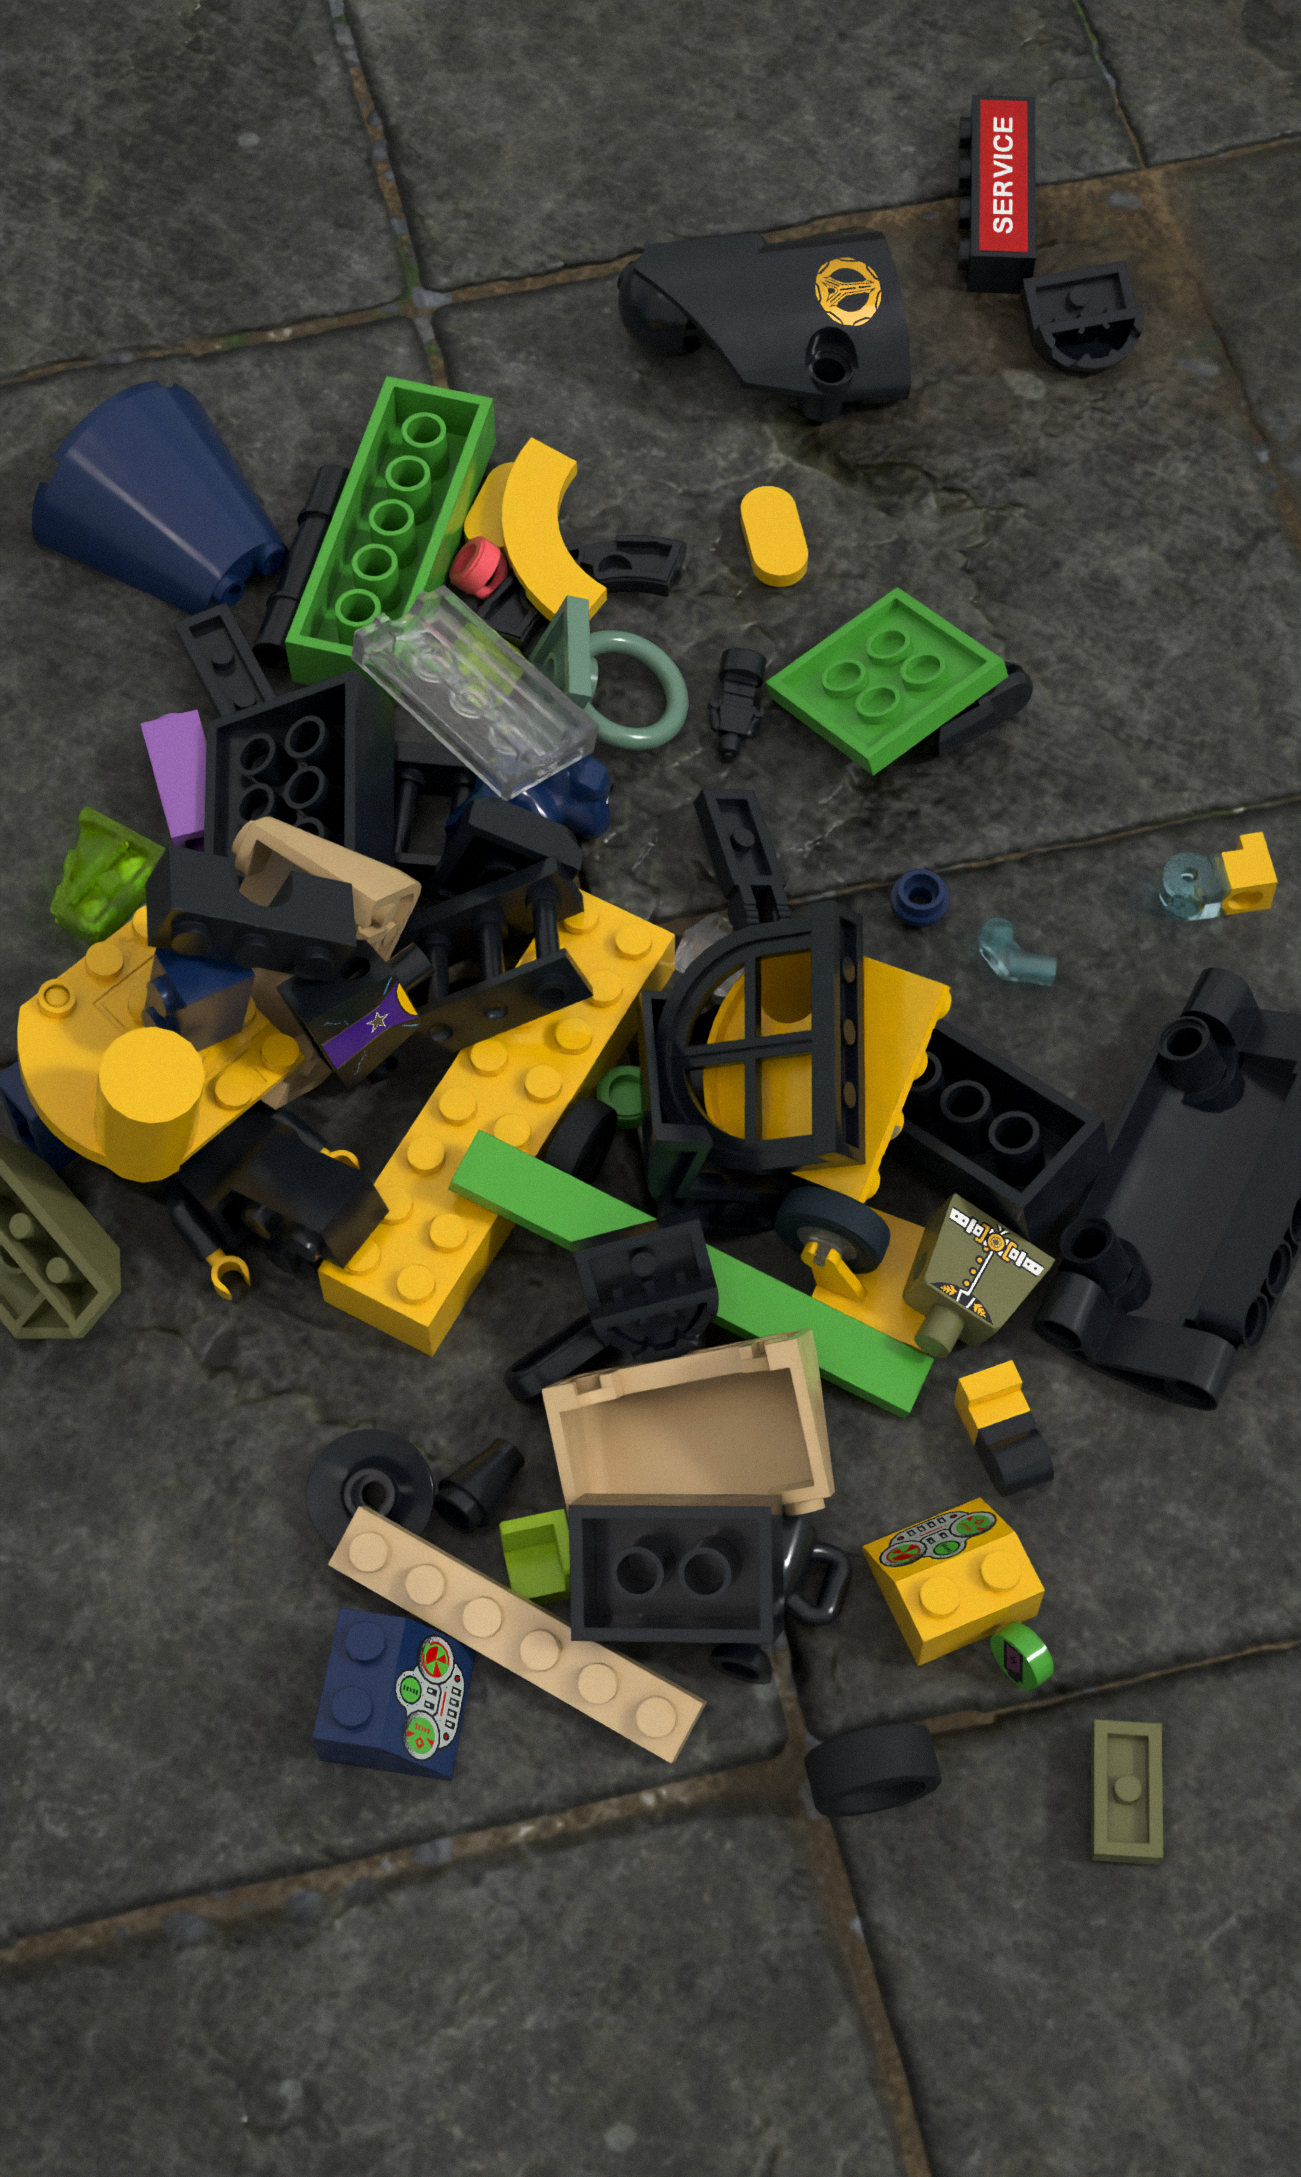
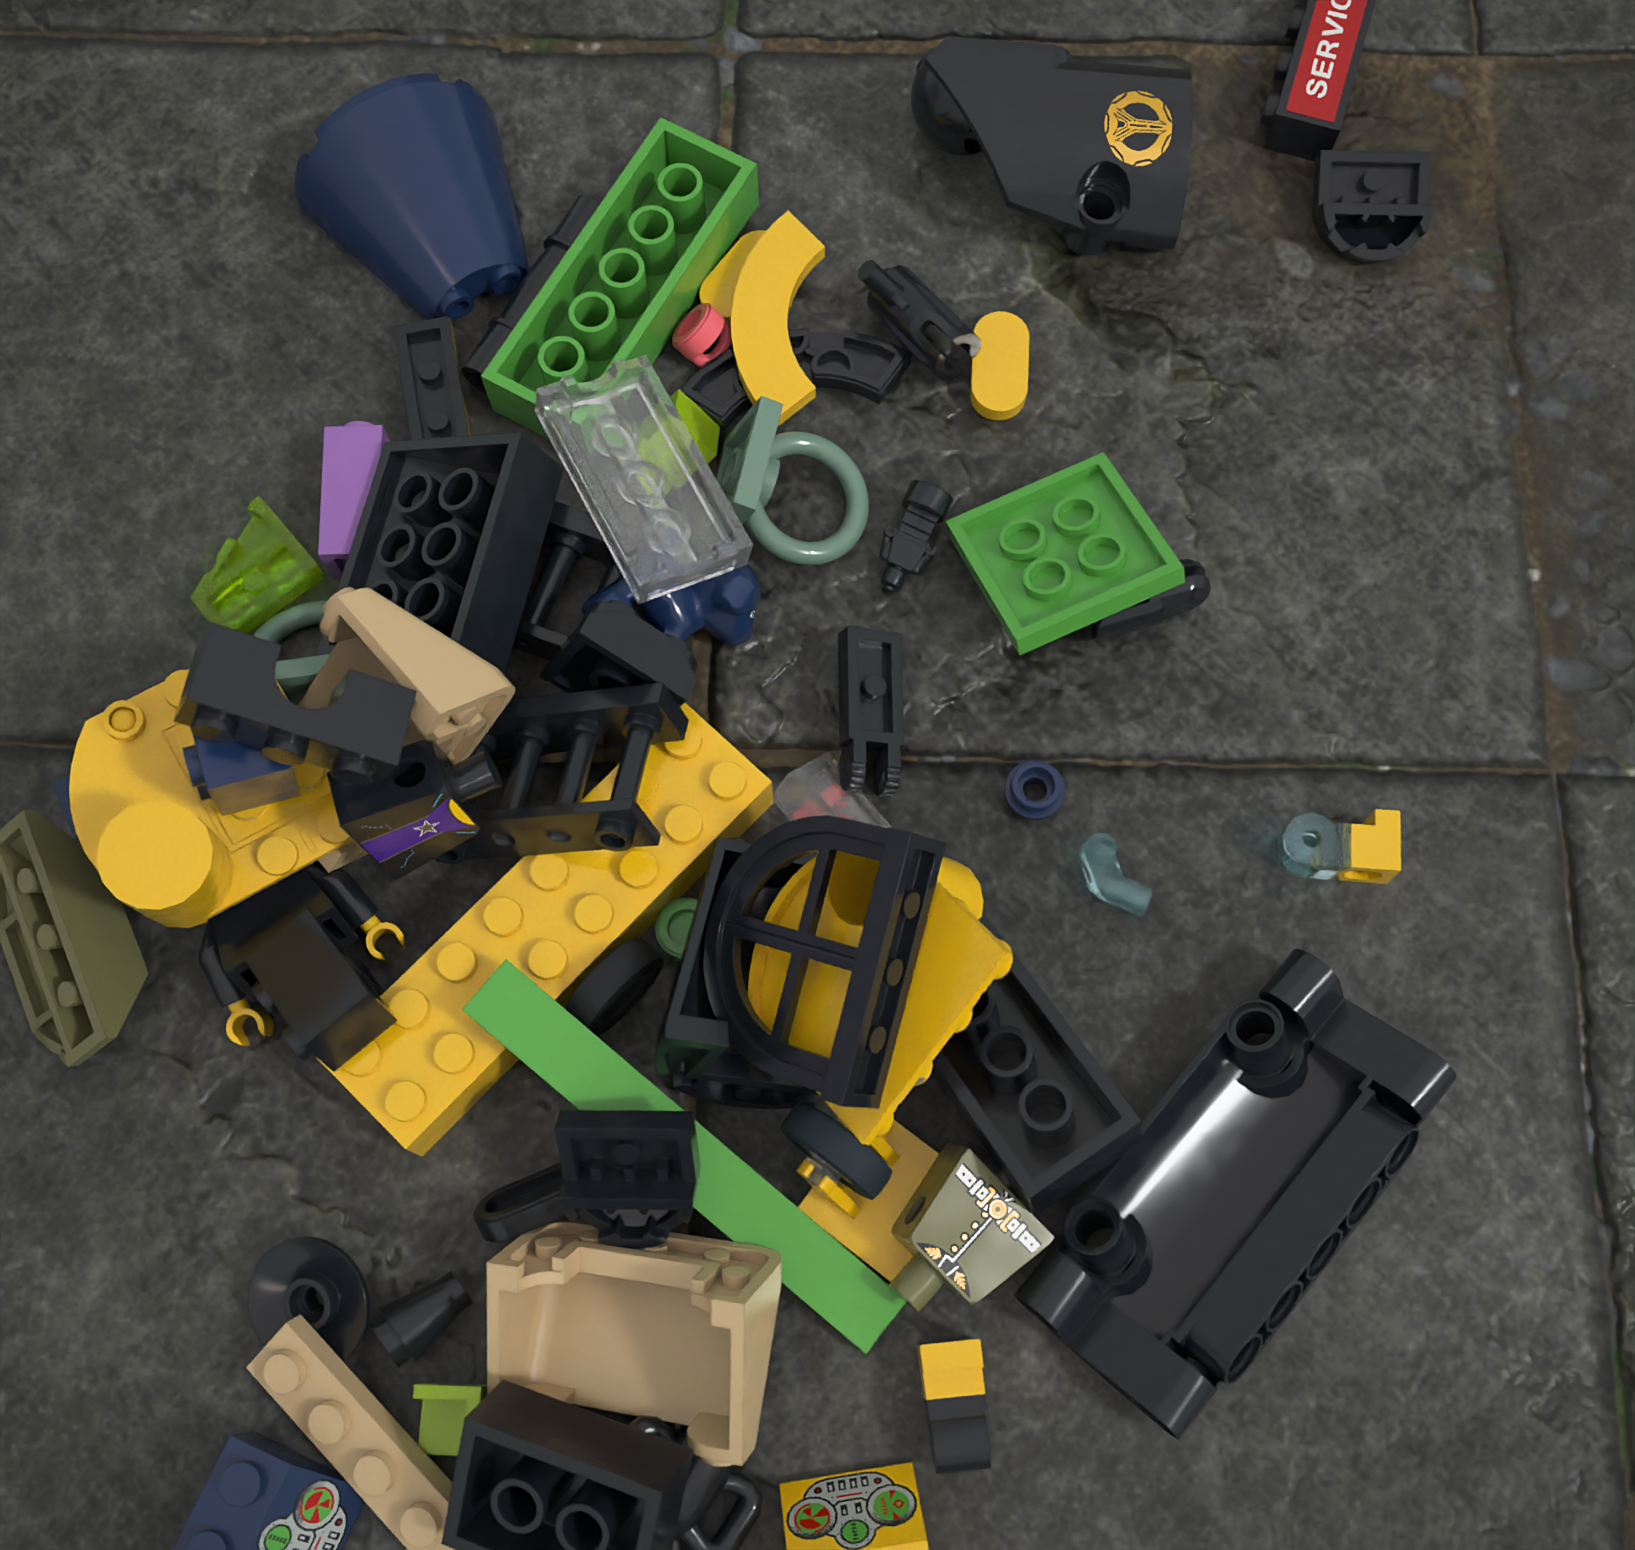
camera: 15 degrees right, 10 degrees up
(674, 501) = (909, 308): none -> black piece

